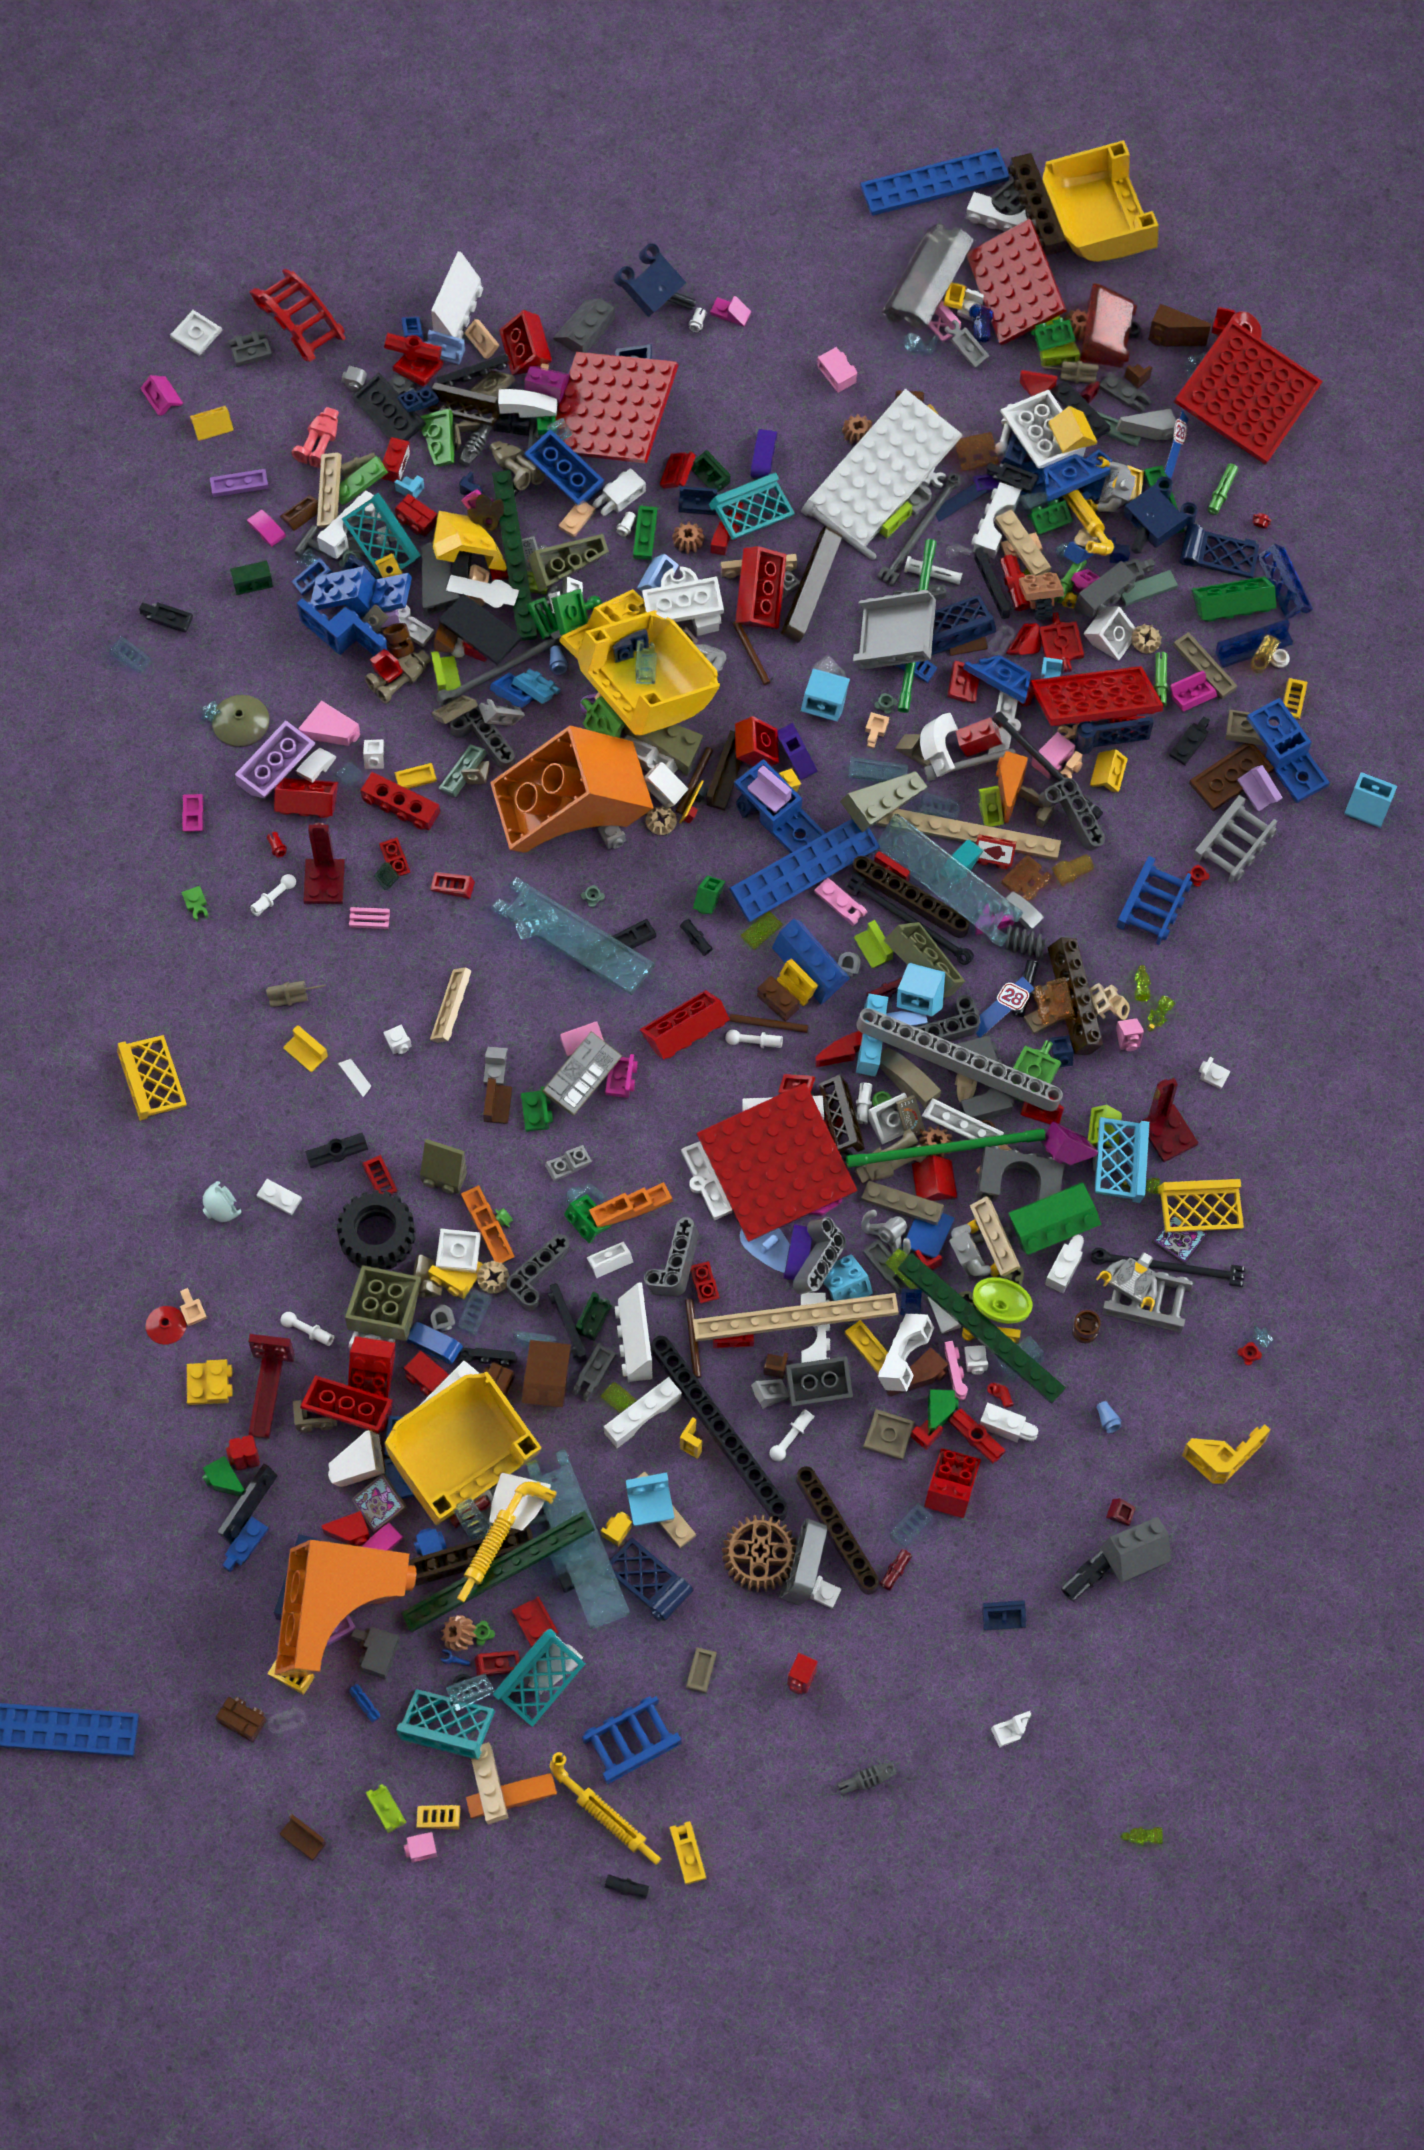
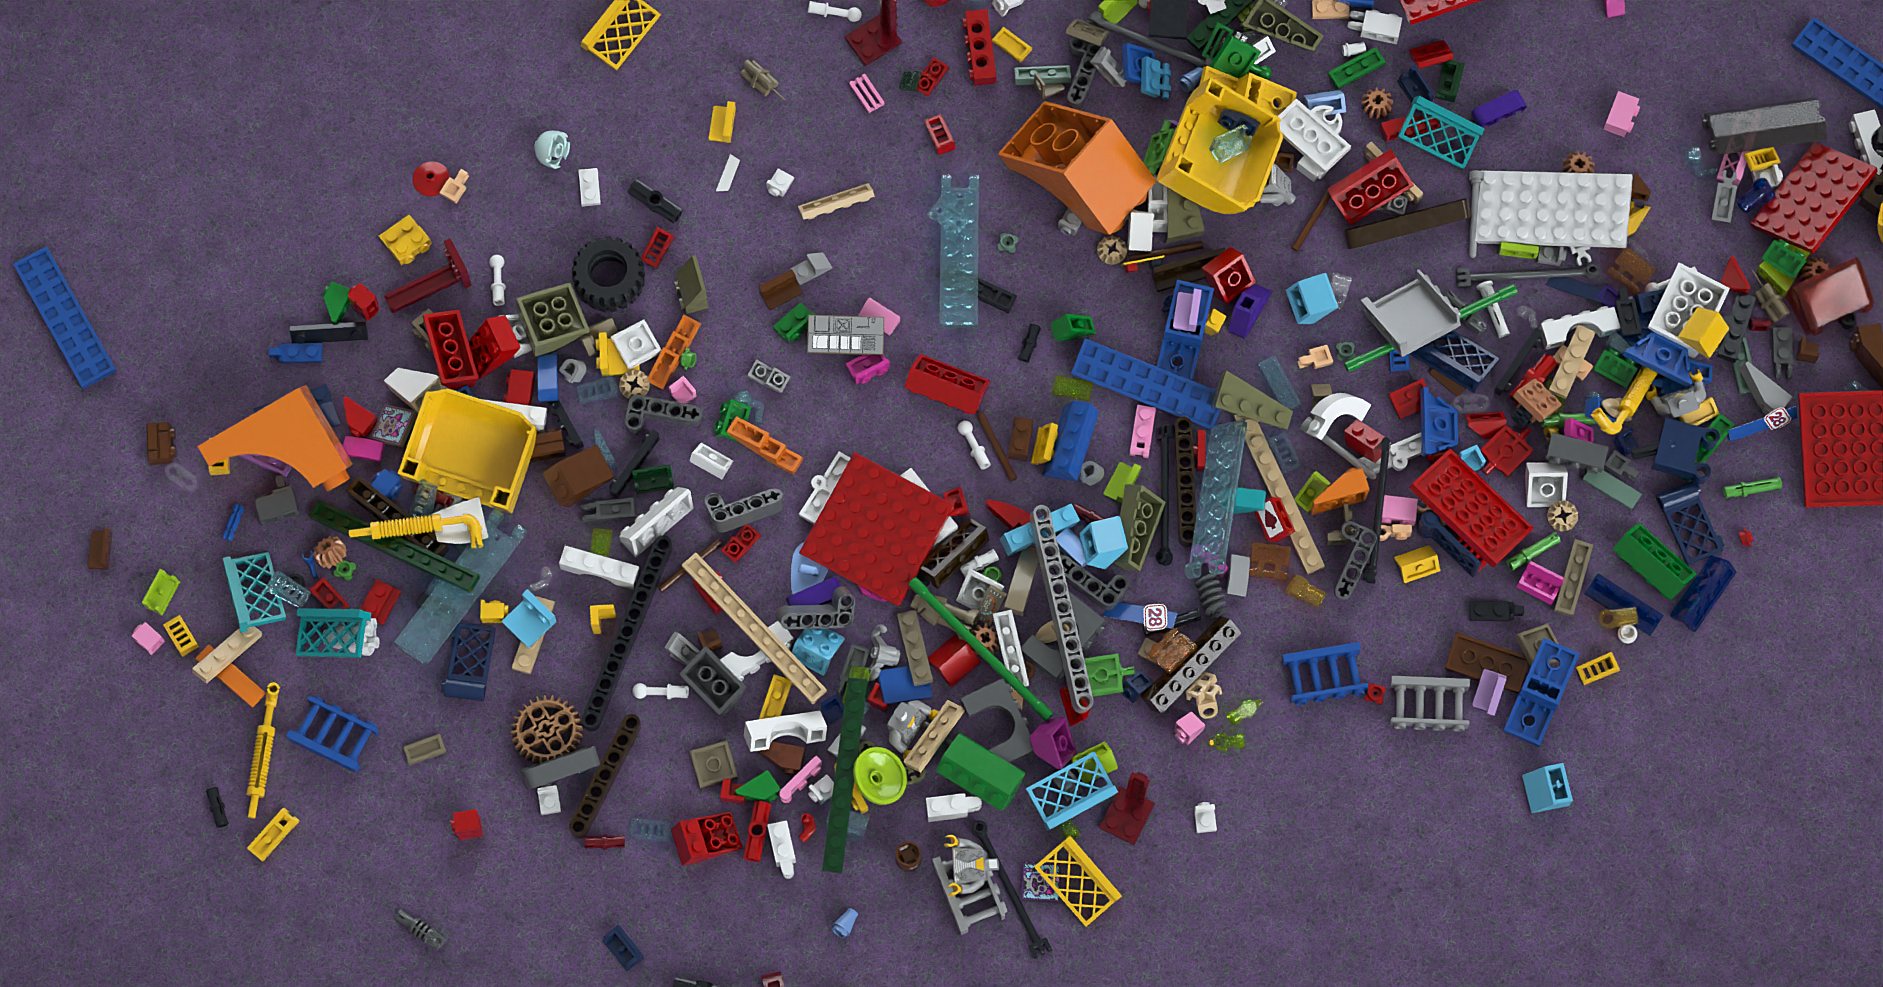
camera: 55 degrees right, 5 degrees up
(530, 1240) = (682, 391): none -> bright pink panel
(618, 1468) = (544, 581): none -> clear arm

